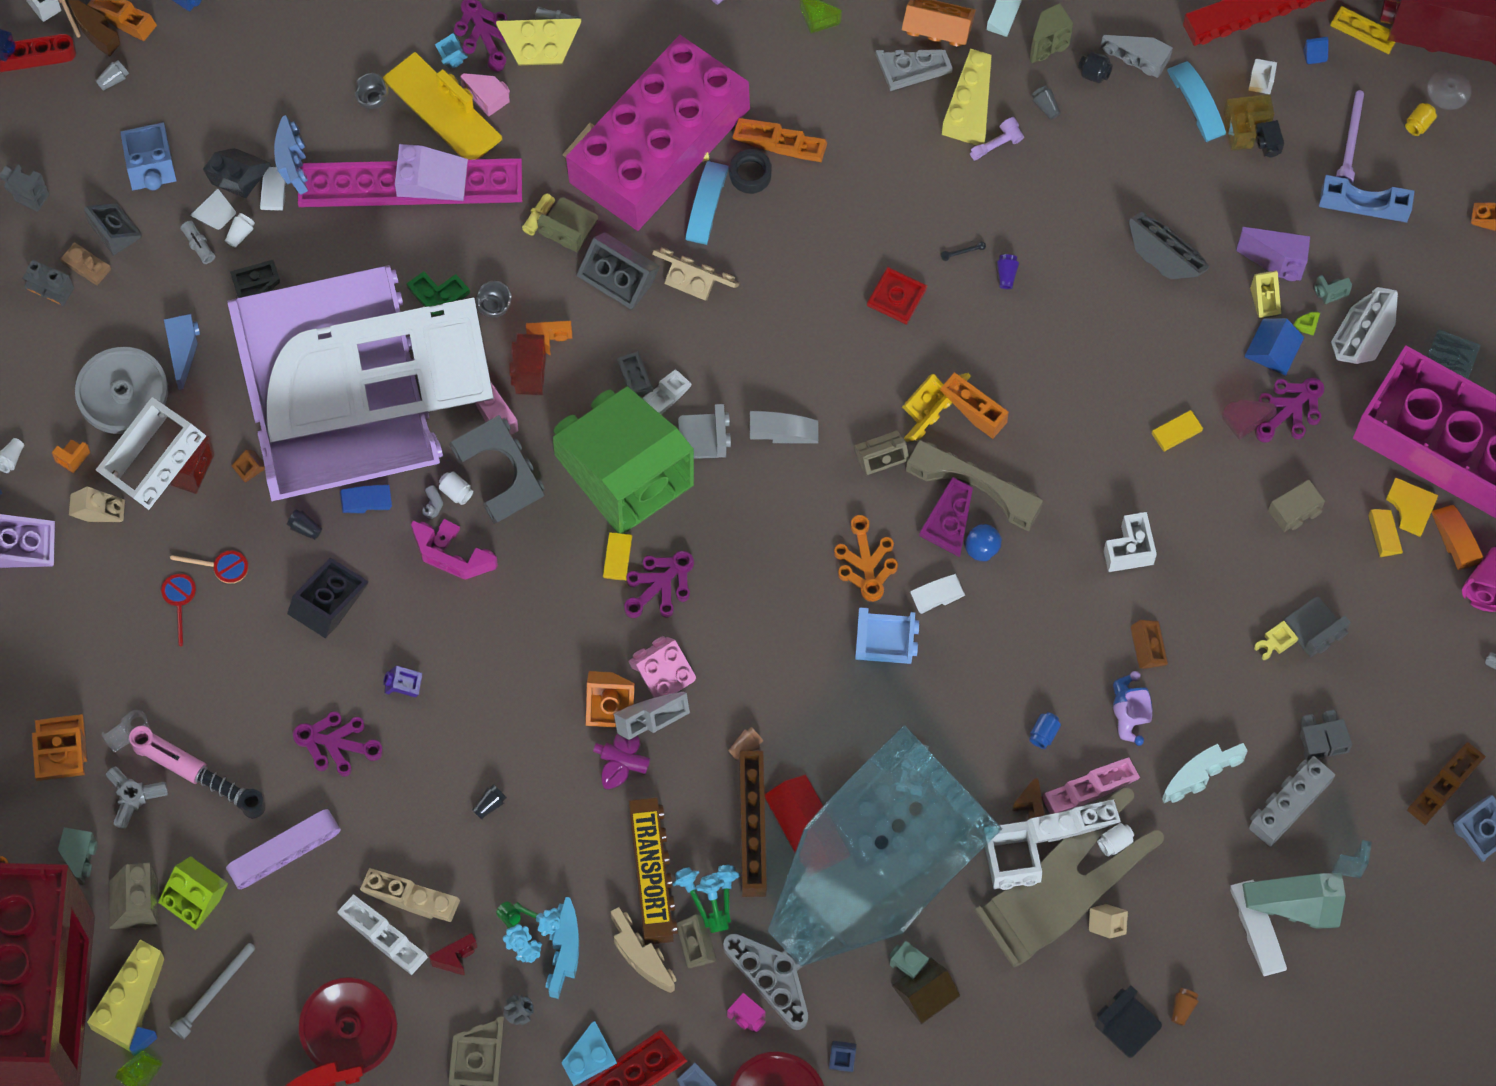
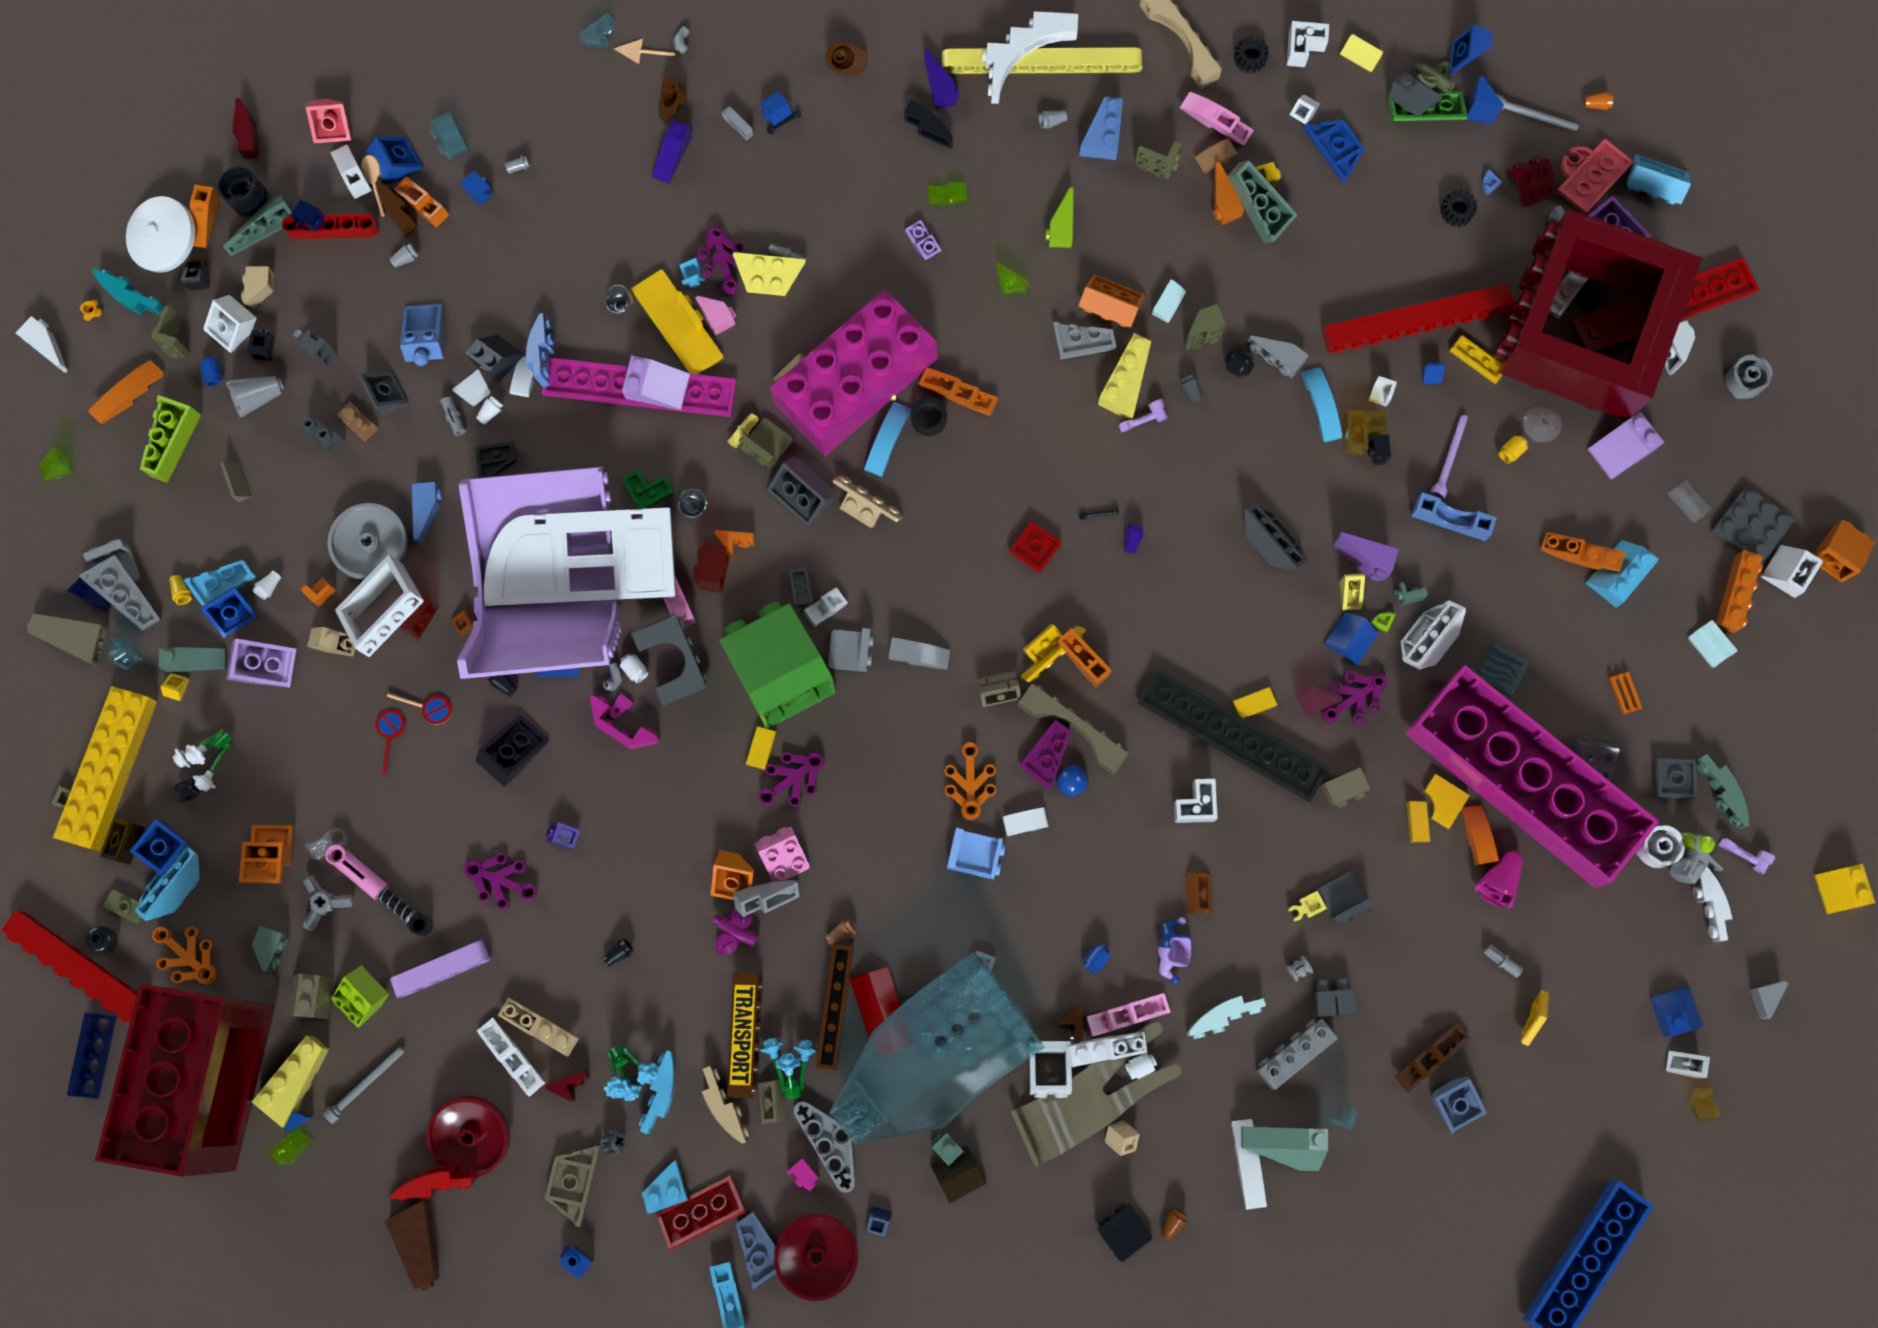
camera: 10 degrees right, 10 degrees up
(1158, 467) = (1233, 735): none -> pearl dark grey plate
(1278, 708) = (1299, 968): none -> light grey bush

